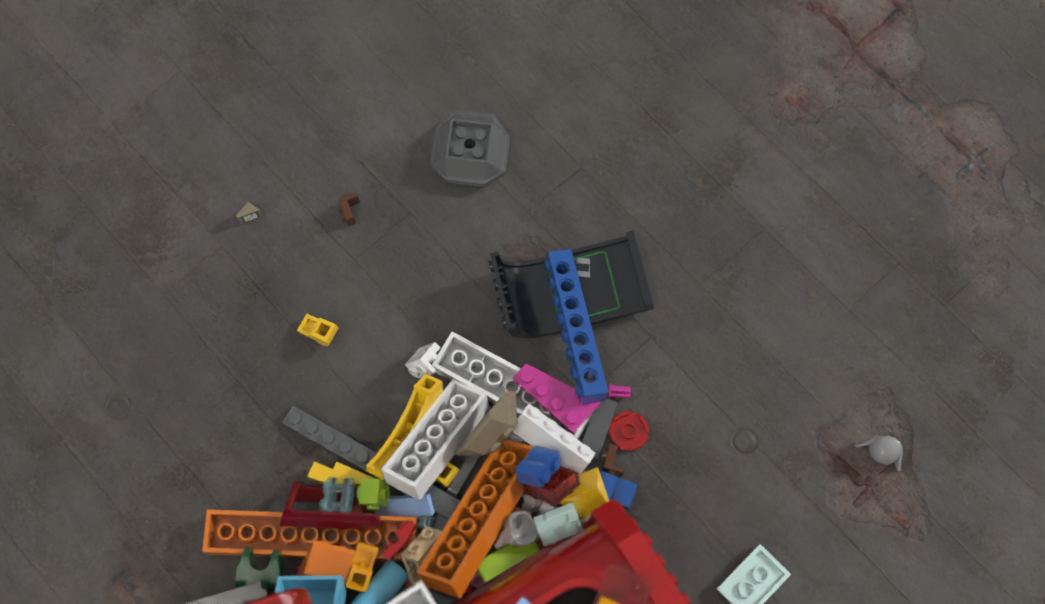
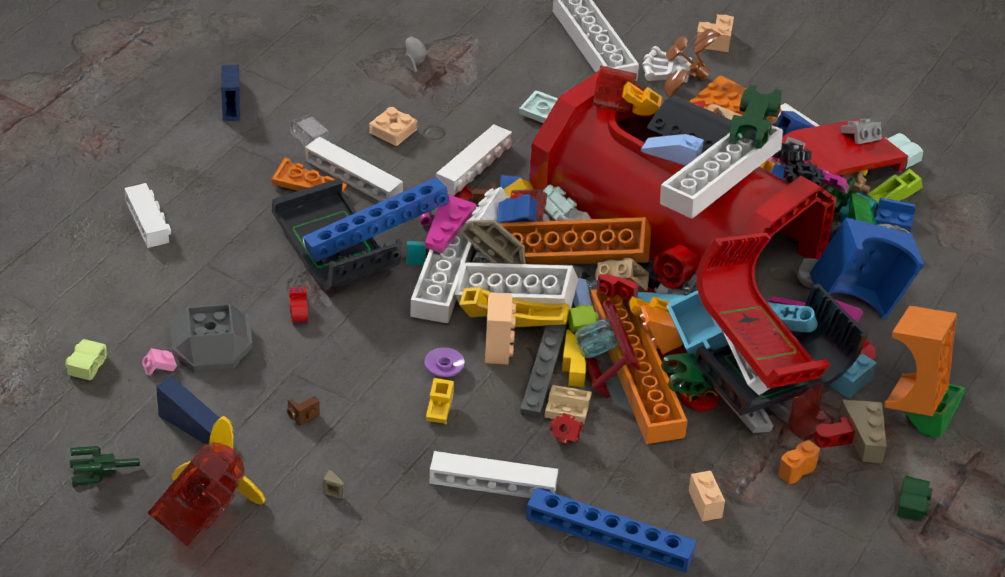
camera: 110 degrees left, 30 degrees down
(59, 490) = (611, 530): none -> blue brick
(119, 543) = (706, 496): none -> light nougat brick
(213, 354) = (491, 475): none -> white brick
(246, 437) = (573, 428): none -> red brick
(253, 92) = (204, 486): none -> clear red brick
(287, 454) = (568, 401): none -> tan slope
(333, 31) = (98, 464): none -> dark green plant
(366, 111) = (185, 410): none -> dark blue slope
(373, 340) = (444, 362): none -> medium lavender dish
(381, 403) = (499, 328): none -> light nougat brick
(420, 362) = (443, 318): white bracket -> none
(449, 100) = (158, 359): none -> bright pink bracket
(468, 41) = (86, 359): none -> yellowish green brick
(490, 234) = (298, 304): none -> red leg
(546, 364) = (416, 253): none -> teal slope
(659, 122) = (147, 215): none -> white brick
(674, 464) = (474, 158): none -> white brick
(684, 282) = (298, 178): none -> orange wing
(686, 333) = (352, 170): none -> white brick
(754, 407) = (393, 126): none -> light nougat brick
(761, 303) = (308, 129): none -> clear brick
(847, 234) = (230, 92): none -> dark blue slope

